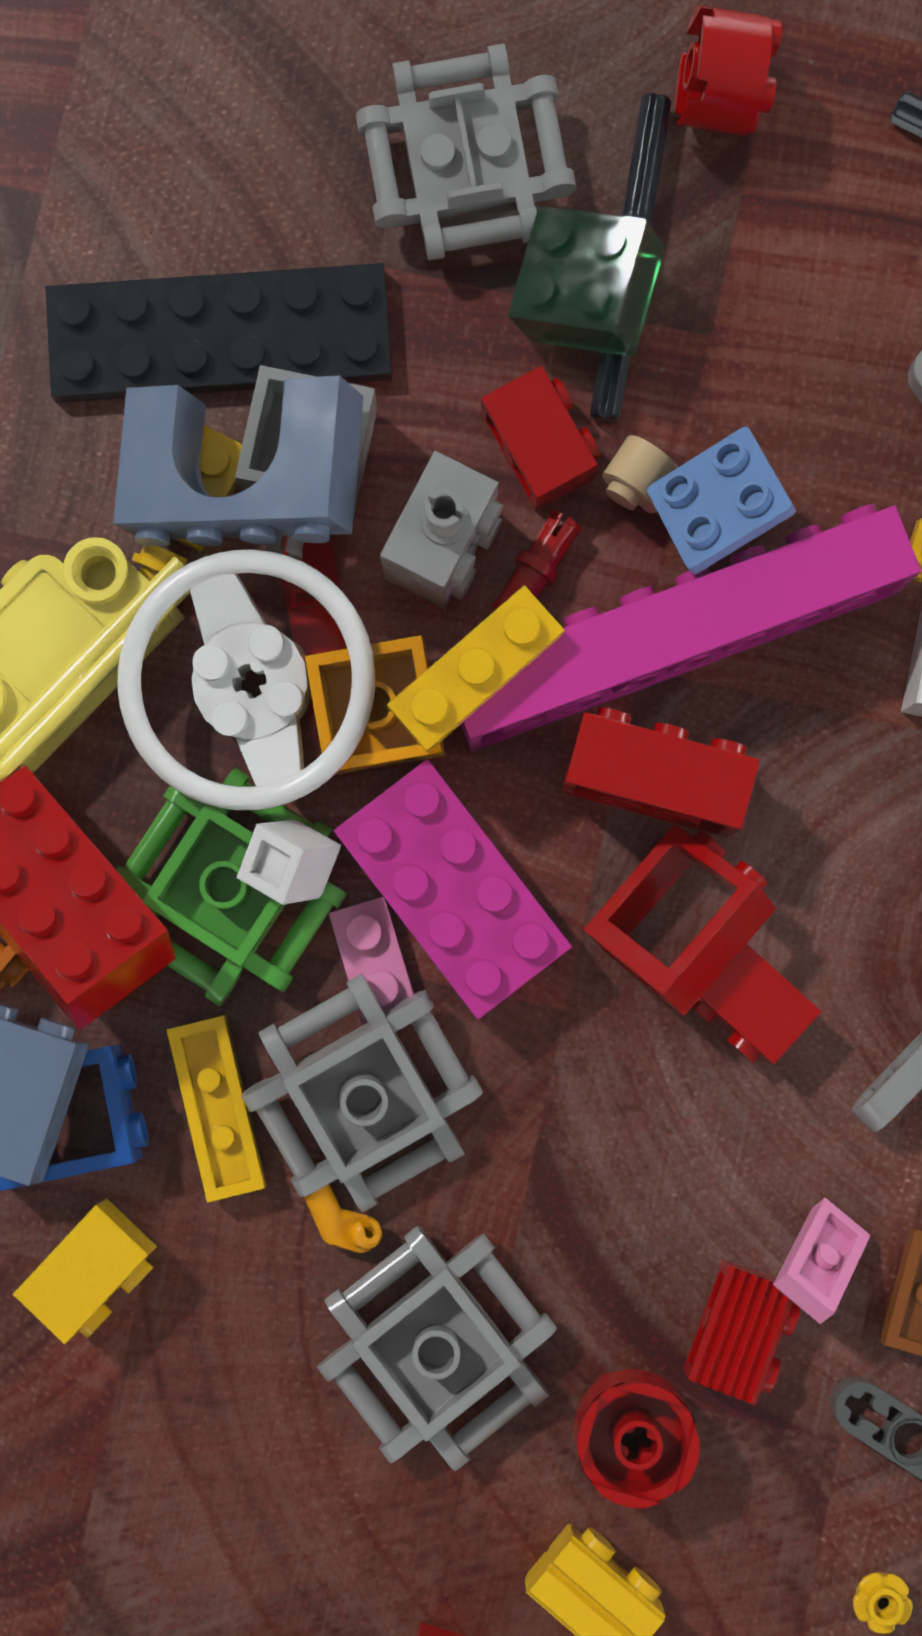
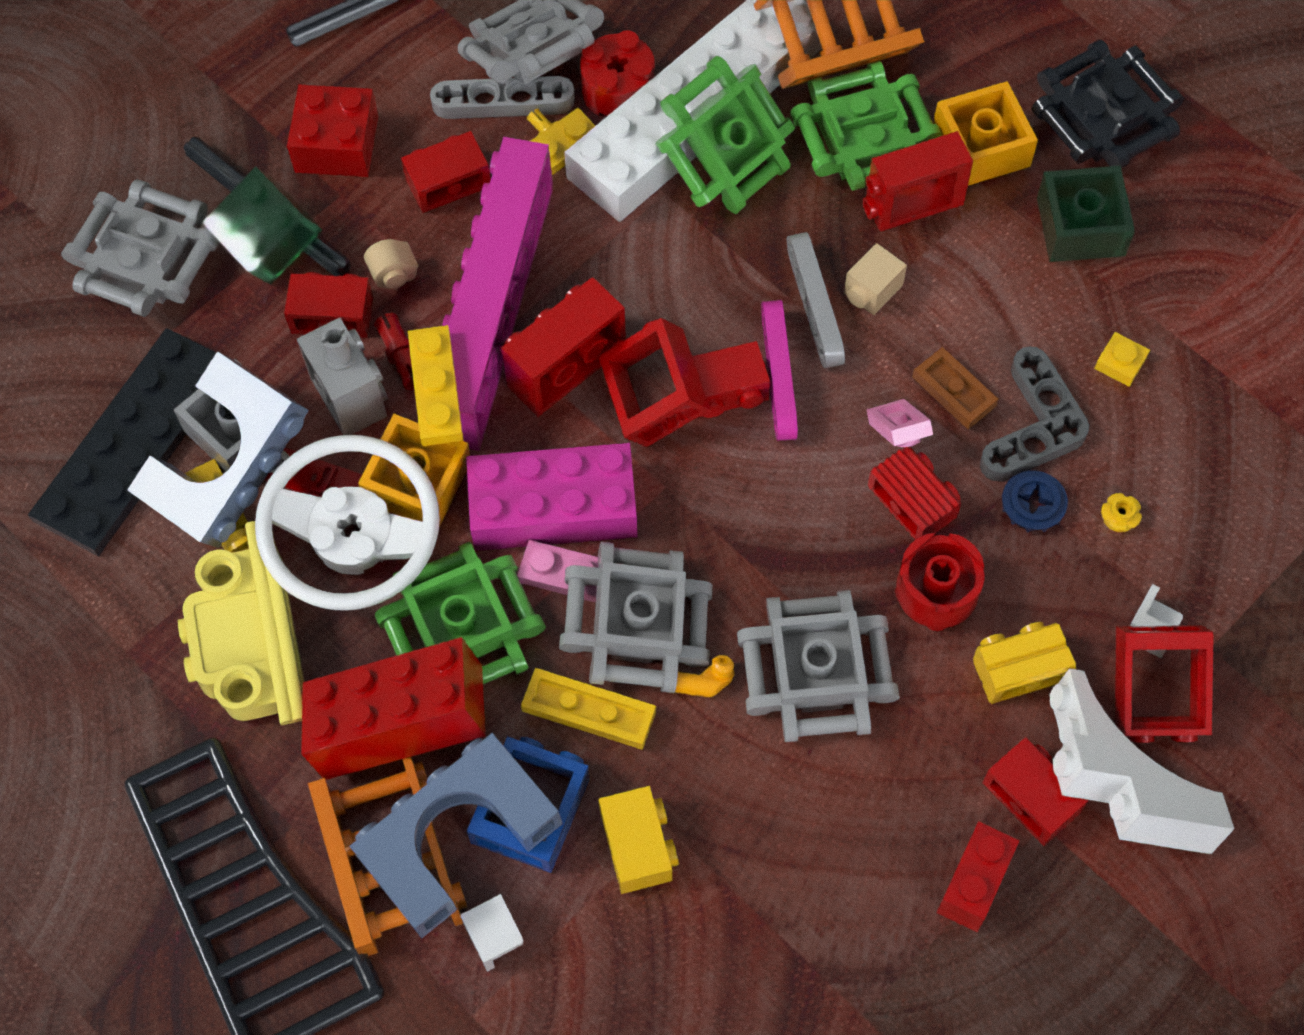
camera: 60 degrees left, 20 degrees down
(288, 861) = (469, 561): white panel -> none
(720, 500) = (436, 220): medium blue plate -> none
(726, 71) = (205, 96): red brick -> none
(788, 263) = (333, 130): none -> red brick
(808, 1056) = (779, 370): none -> dark pink beam
(825, 447) = (446, 171): none -> red brick
(853, 1495) = (1050, 494): none -> dark blue gear

